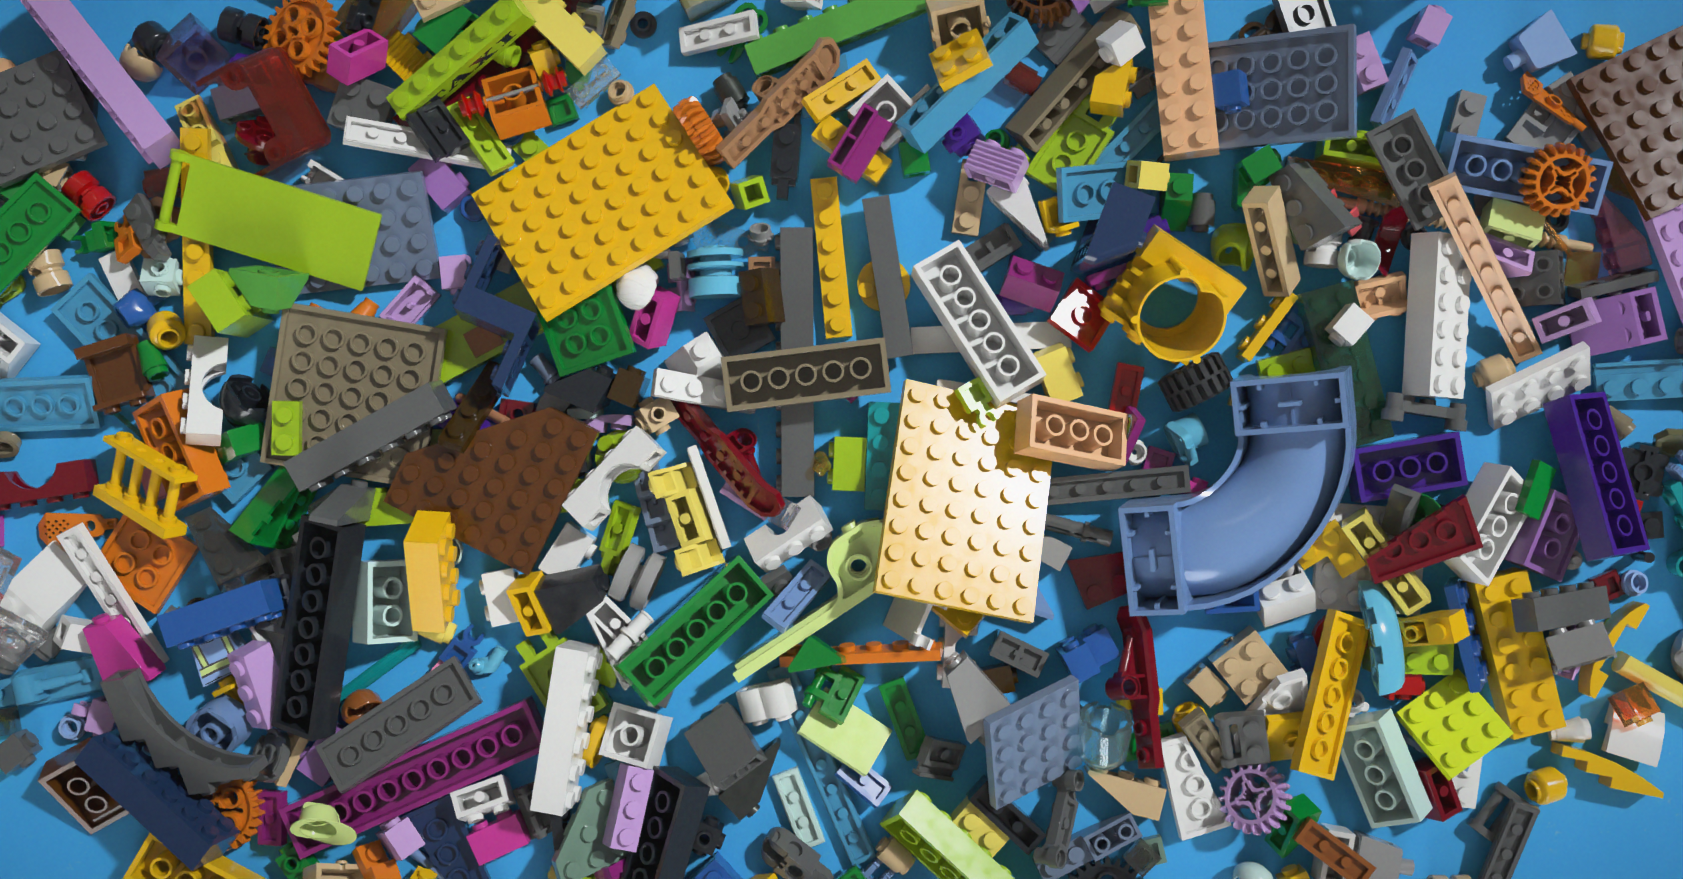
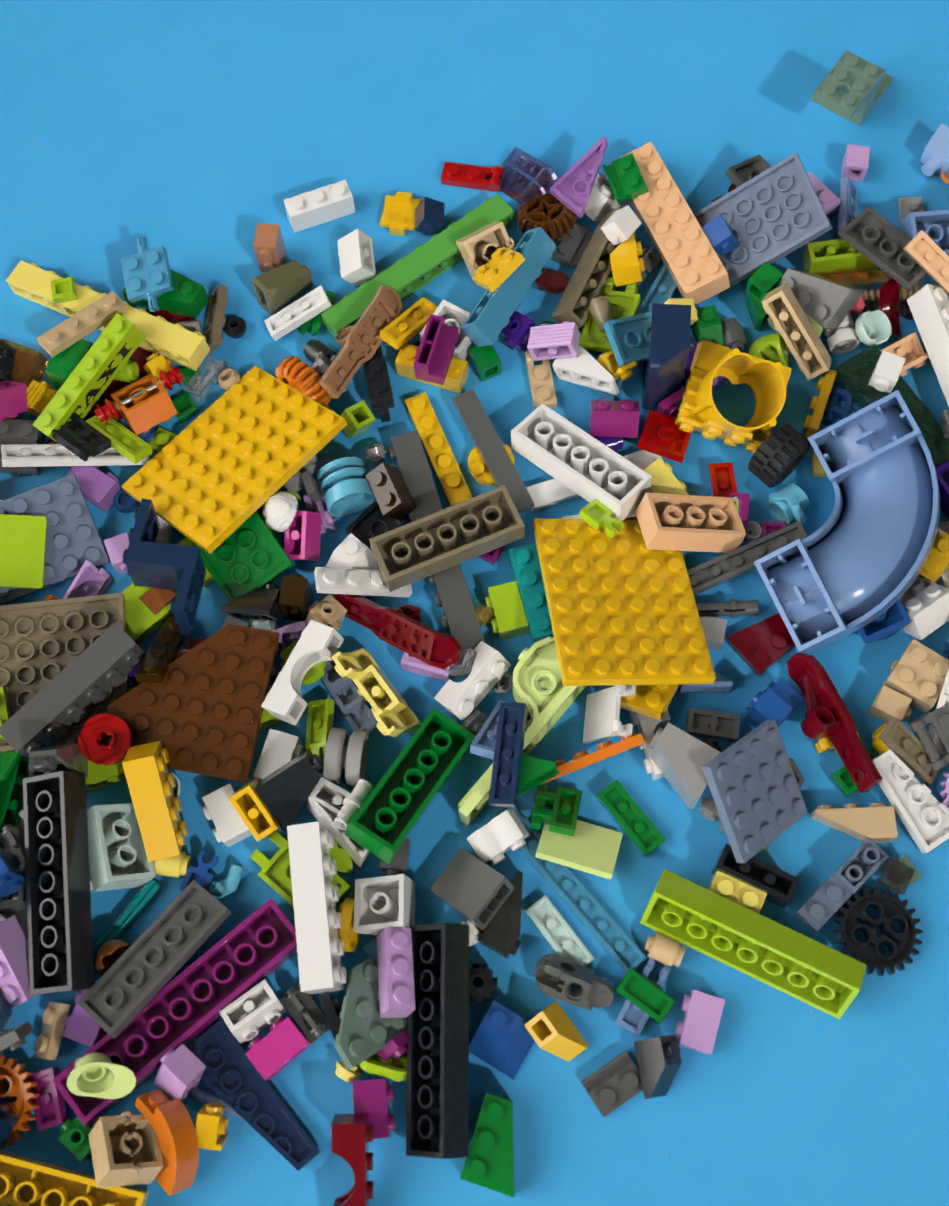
camera: 15 degrees left, 20 degrees down
(277, 749) = (42, 1022): dark grey tile -> none
(384, 507) = (92, 734): none -> red plate
(545, 369) = (214, 608): sand blue pin -> none
(708, 497) = (392, 673): white tile -> none
(797, 637) = (508, 755): none -> dark blue plate
(871, 787) = (617, 890): plate -> none
(939, 758) = (674, 841): dark grey plate -> none
(993, 247) = (577, 405): dark grey hinge -> none
(1062, 146) = (601, 310): none -> dark tan cone
(1062, 821) = (808, 860): dark grey plate -> none
(1104, 735) = (818, 773): clear light blue cylinder -> none

